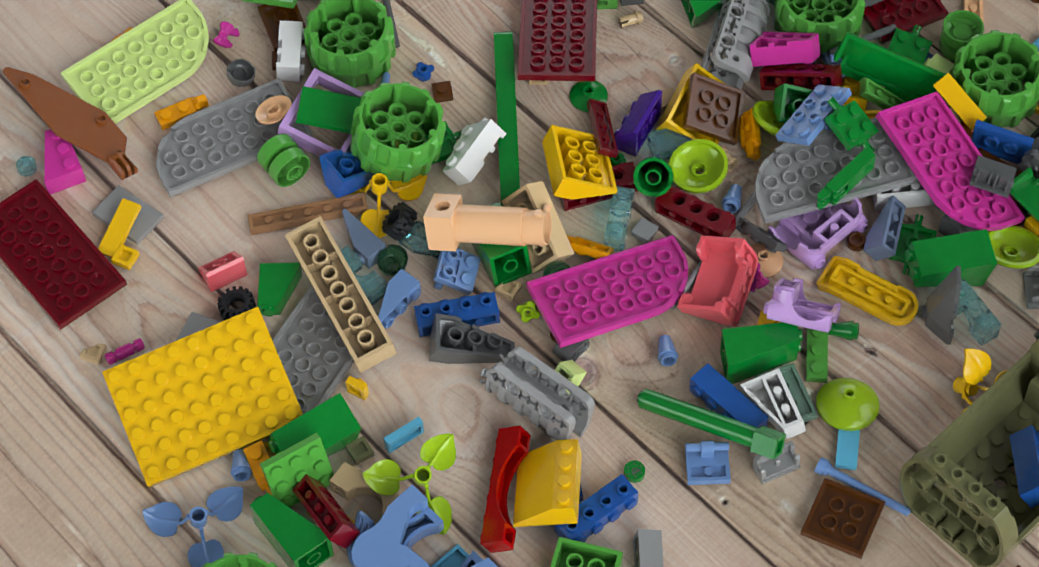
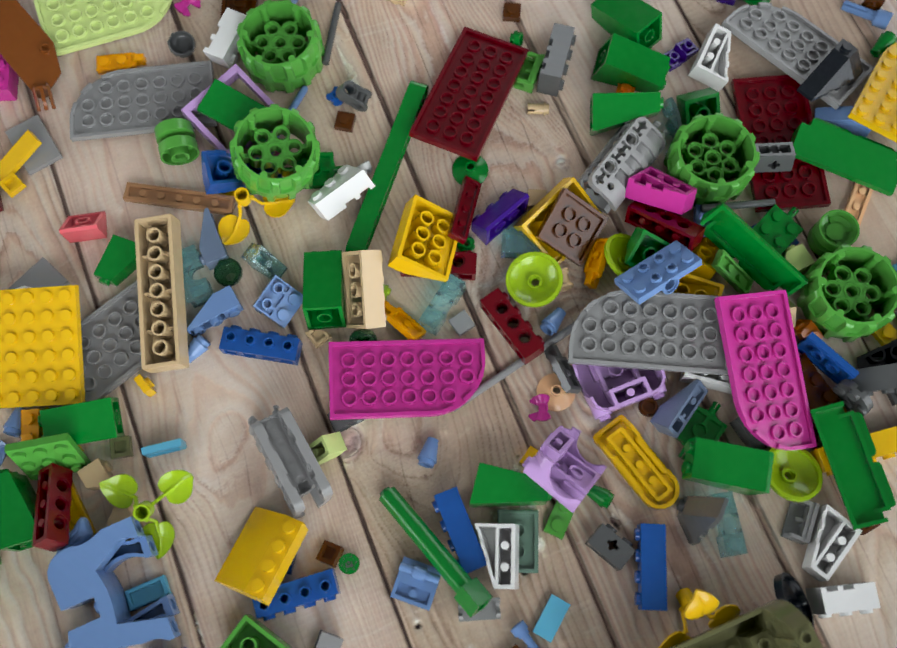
camera: 20 degrees right, 15 degrees up
(235, 295) = (72, 261): black tyre -> none
(273, 109) = (187, 90): light nougat dish -> none
(395, 333) = (197, 347): none -> medium blue cone
(399, 221) = (247, 238): black tyre -> none
(441, 62) = (356, 96): none -> dark grey piece
(452, 222) = (282, 261): light nougat piece -> none
(461, 343) = (251, 375): dark grey wedge -> none
(510, 450) = (245, 503): red arch -> none
(531, 306) = (322, 365): lime plate -> none
(612, 467) = (330, 553): none -> reddish brown plate
(653, 176) = (486, 277): green cone -> none
(721, 281) = (505, 404): coral windscreen -> none
(846, 179) = (660, 352): green hinge -> none
(846, 411) = (563, 584): lime dish -> none
(851, 125) = (687, 299): green plate -> none
(874, 368) = (615, 557): none -> dark grey brick
(920, 370) = (651, 567): none -> blue brick
(959, 100) = (803, 306): yellow tile -> none
(993, 176) = (803, 398): dark grey hinge -> none

